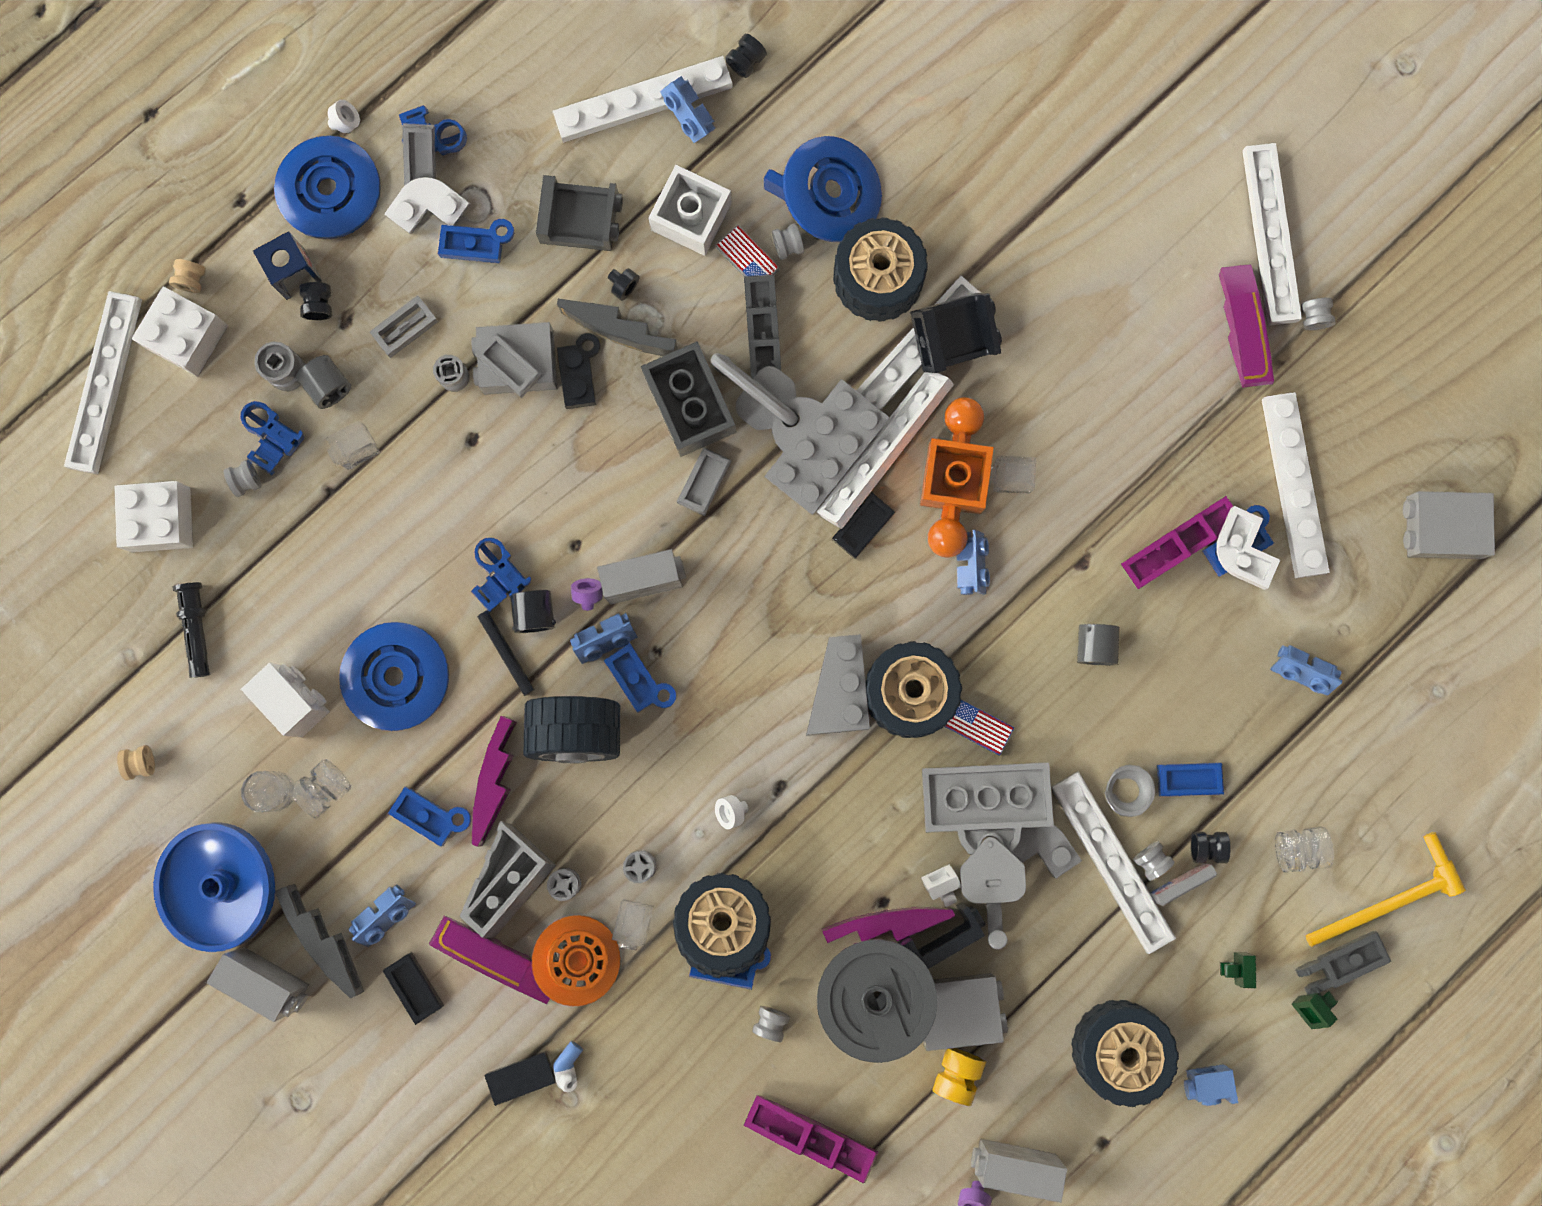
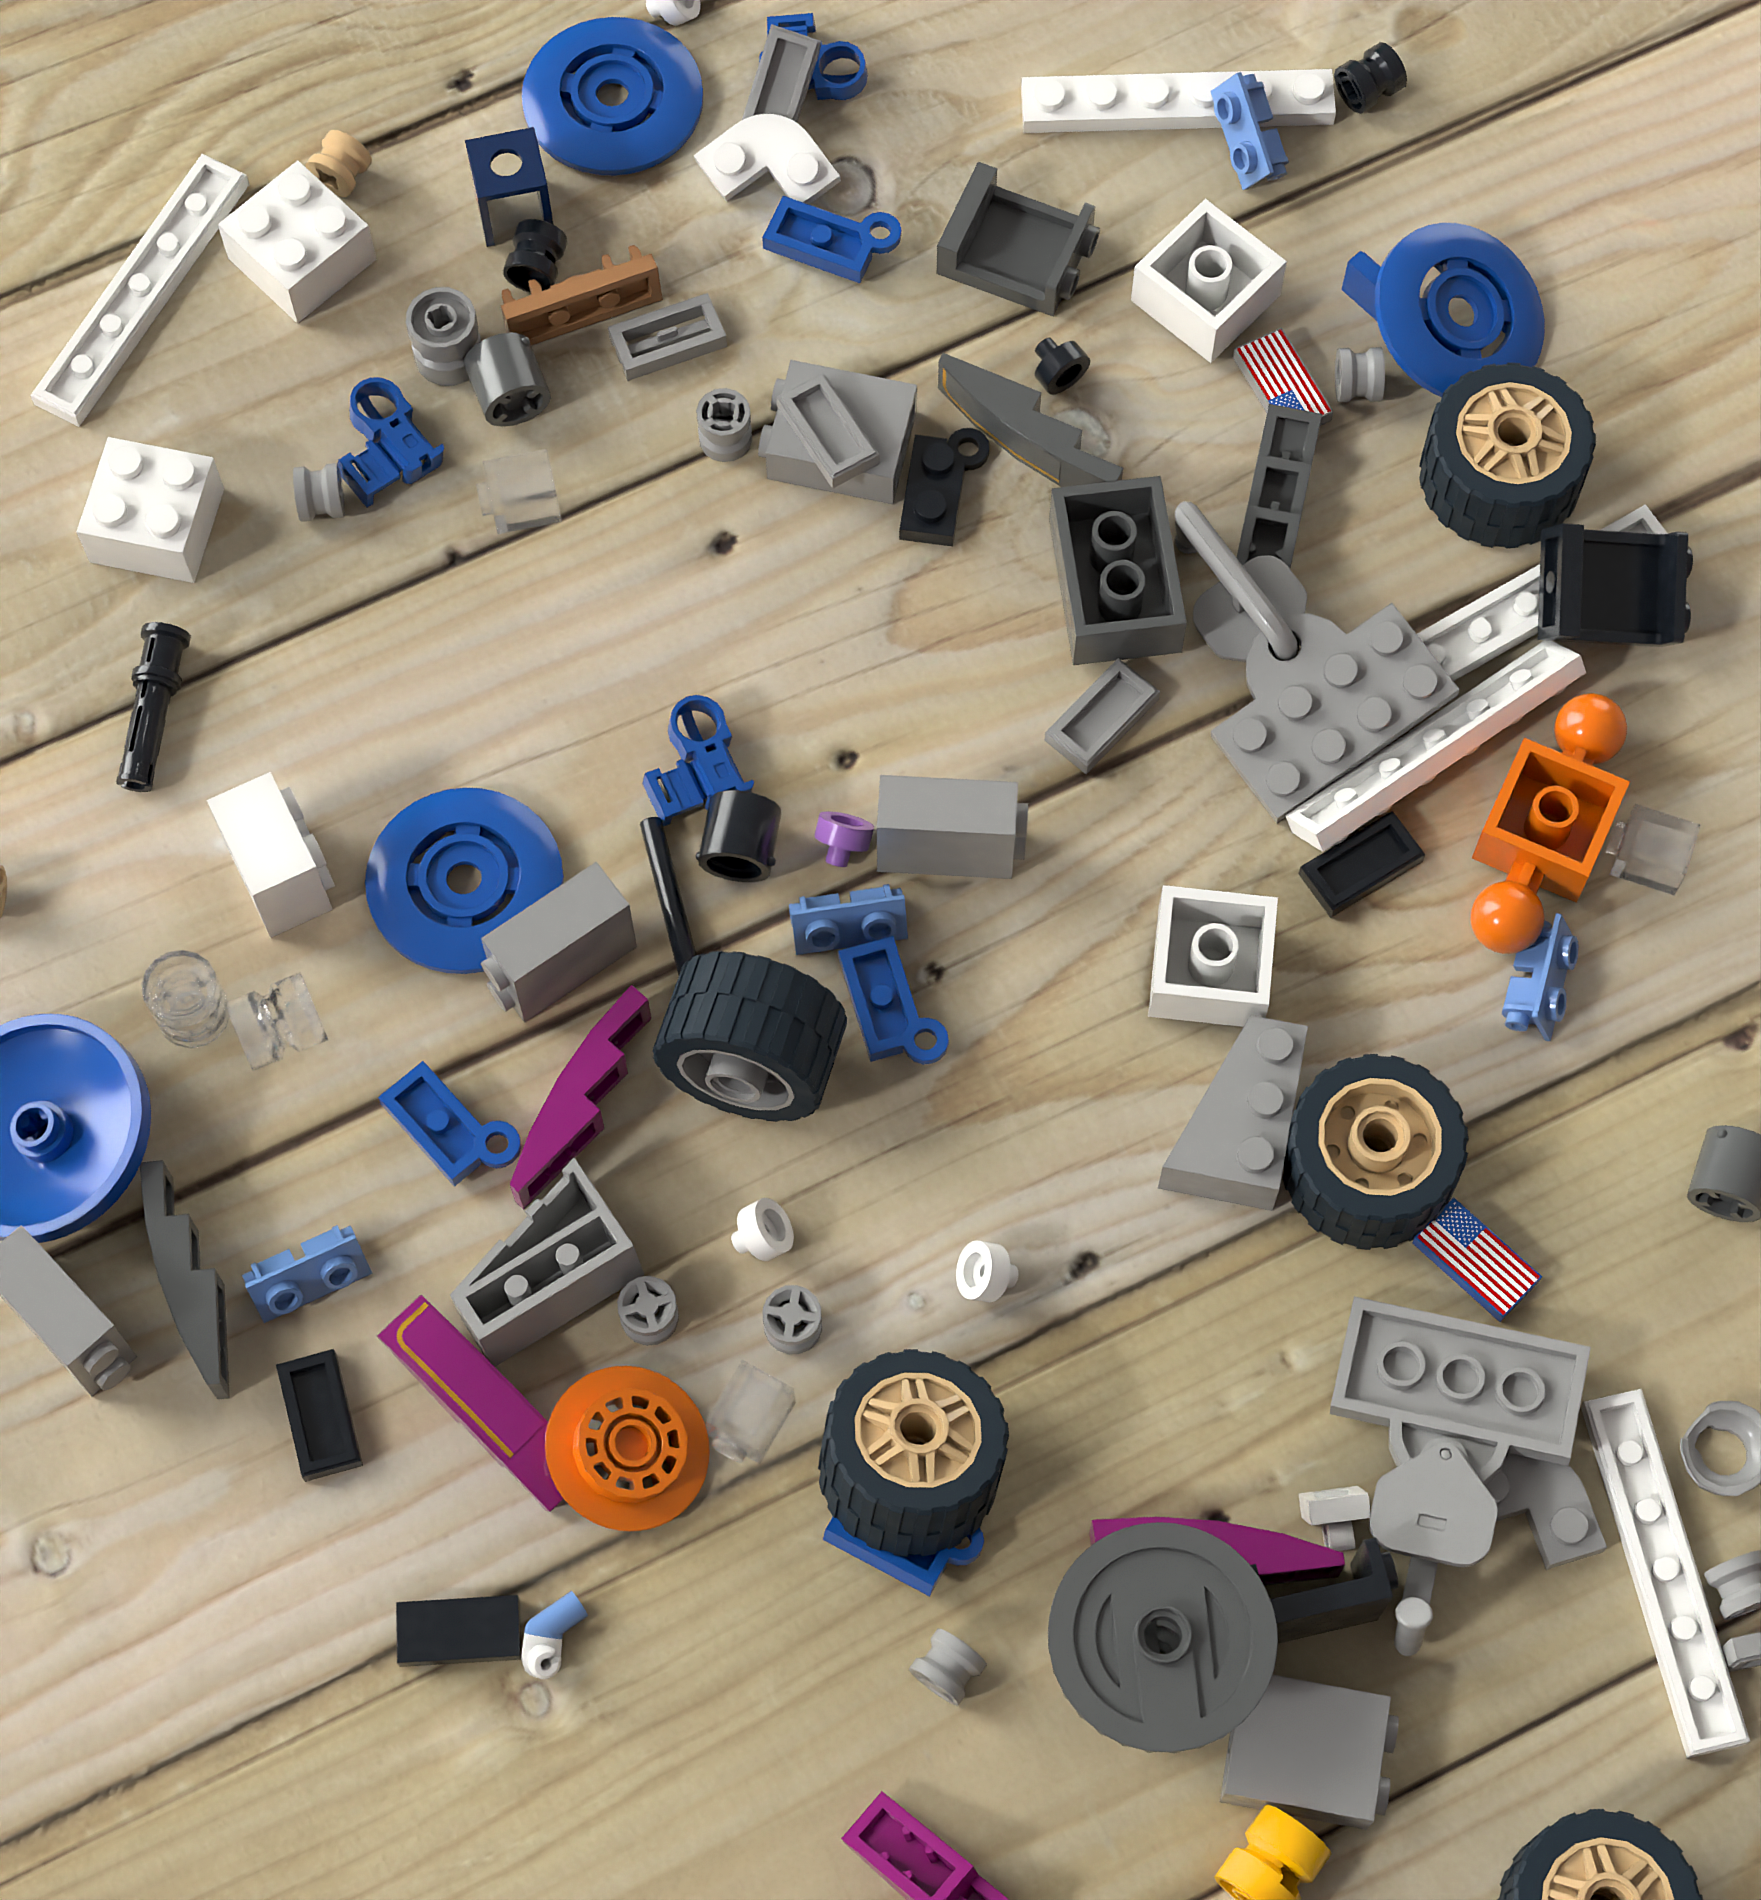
camera: 15 degrees right, 15 degrees down
(348, 320) = (583, 298): none -> medium nougat plate
(454, 704) = (558, 943): none -> light grey brick
(610, 824) = (763, 1230): none -> white tile
(800, 606) = (1212, 956): none -> white brick

